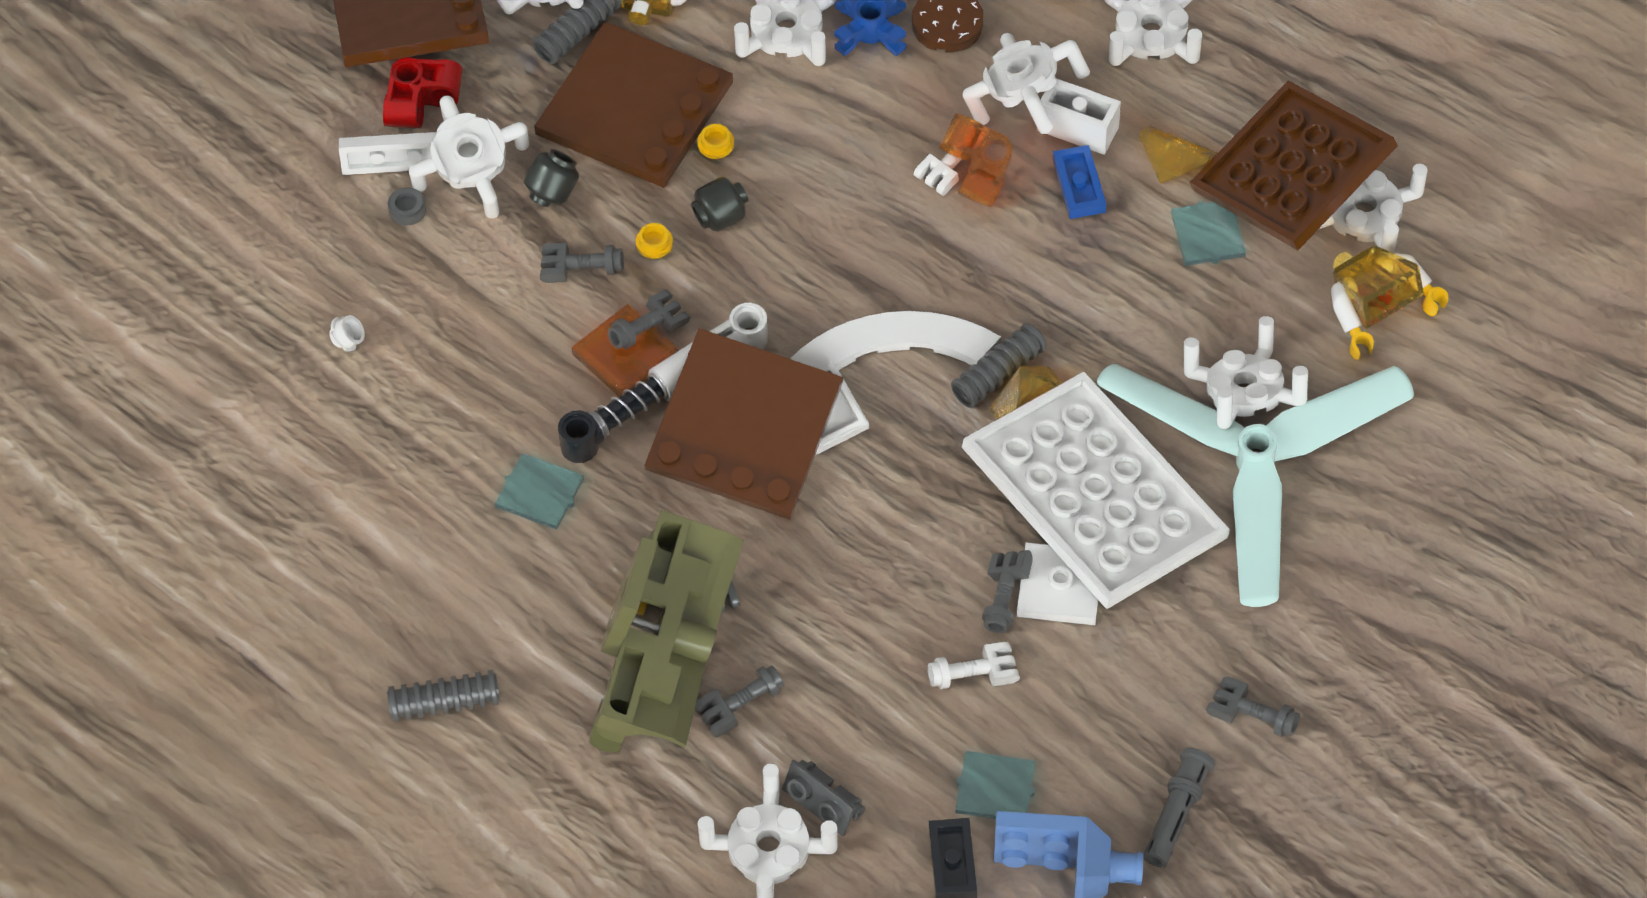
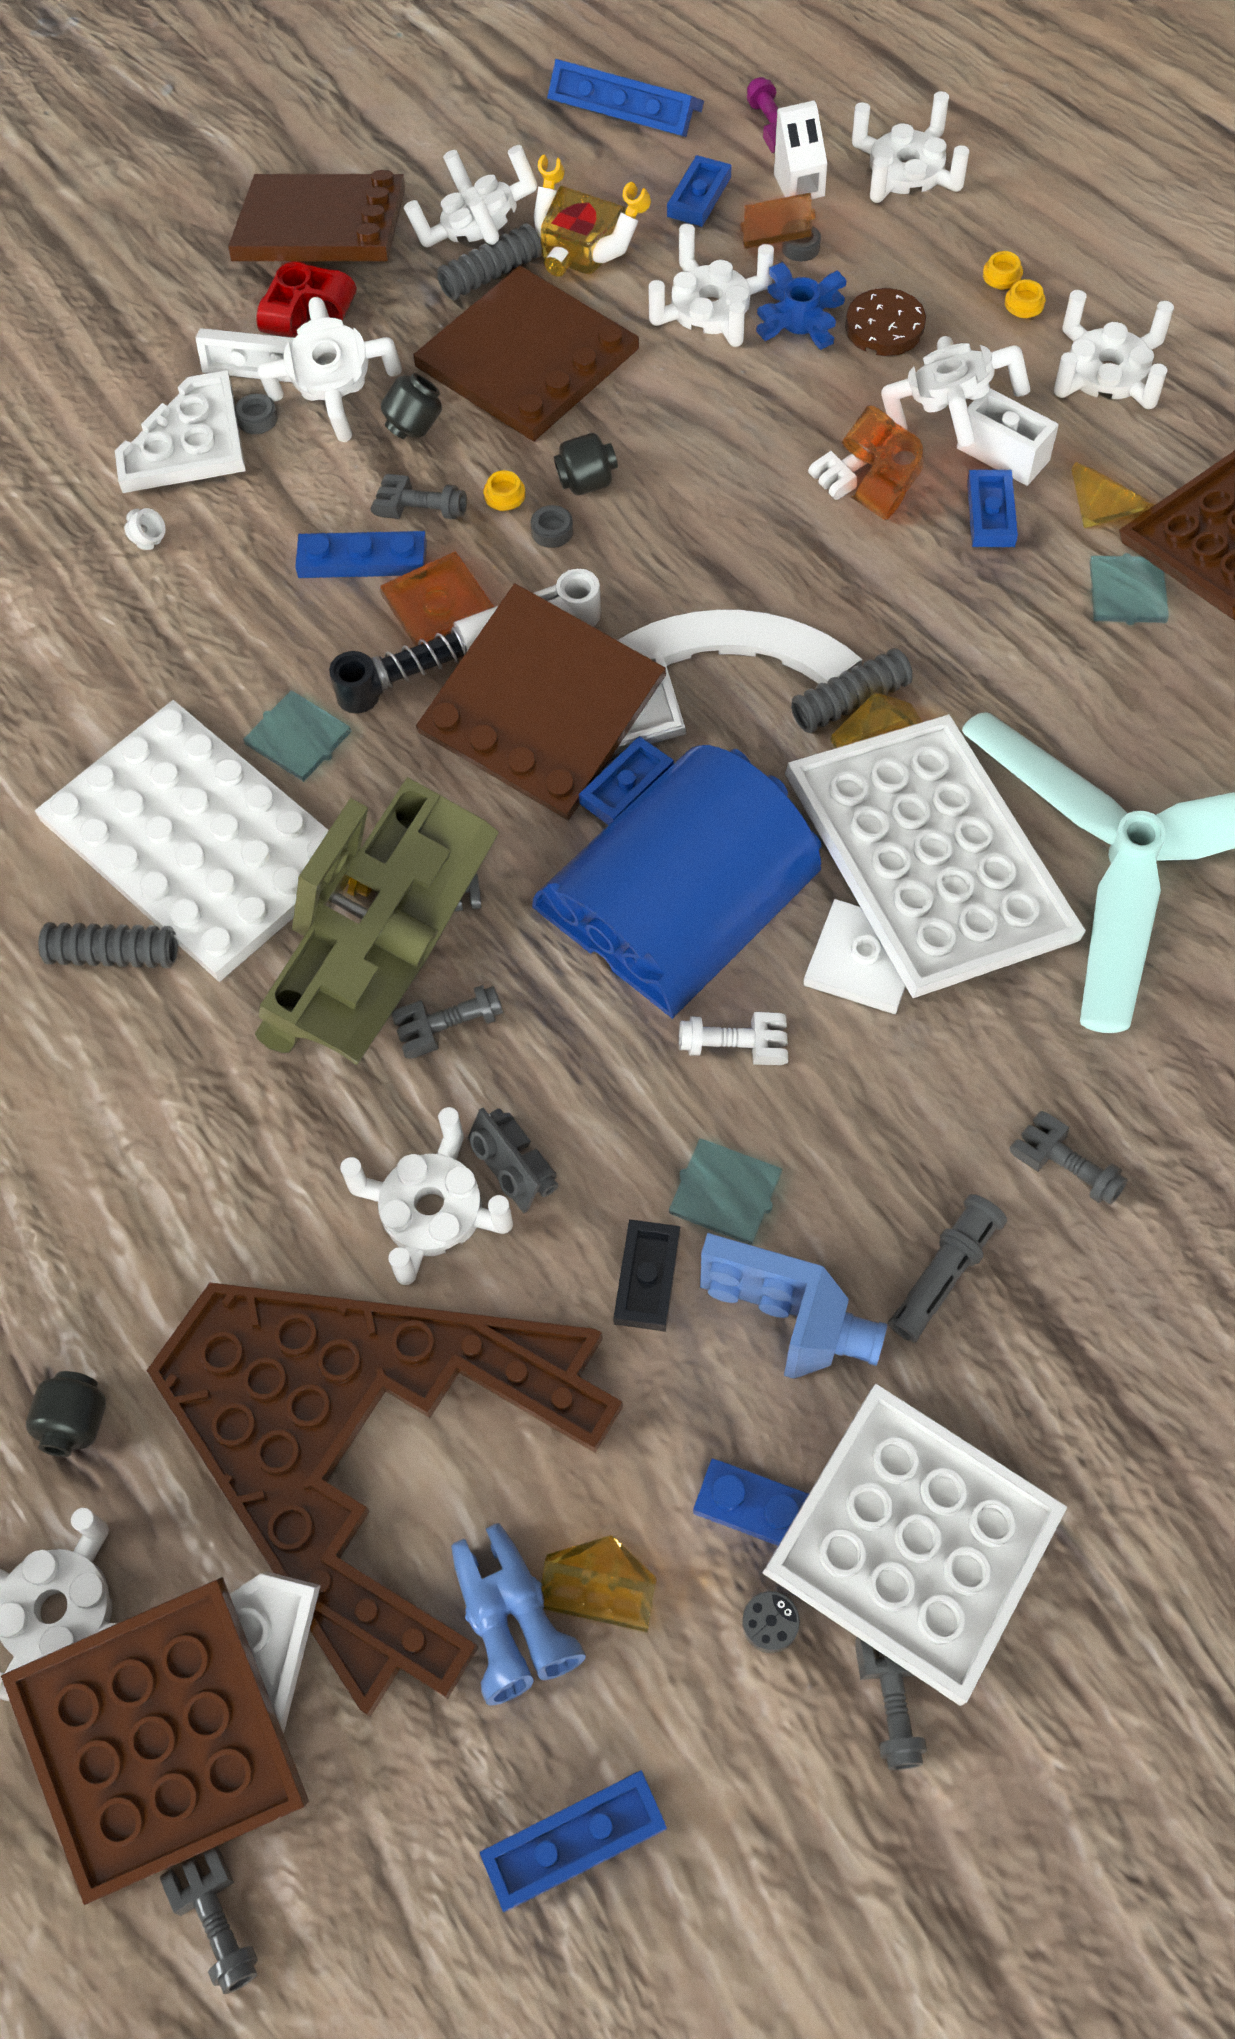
camera: 15 degrees right, 5 degrees up
(354, 241) = (185, 439): none -> white plate
(482, 593) = (189, 837): none -> white plate
(544, 321) = (360, 554): none -> blue plate
(624, 333) = (488, 563): dark grey hinge -> none
(704, 265) = (551, 526): none -> dark grey tile
(715, 141) = (601, 401): yellow plate -> none
(832, 478) = (624, 780): none -> blue plate
(900, 545) = (685, 875): none -> blue cylinder
(1005, 570) = (801, 927): dark grey hinge -> none
(1257, 370) = (1159, 753): white plate -> none

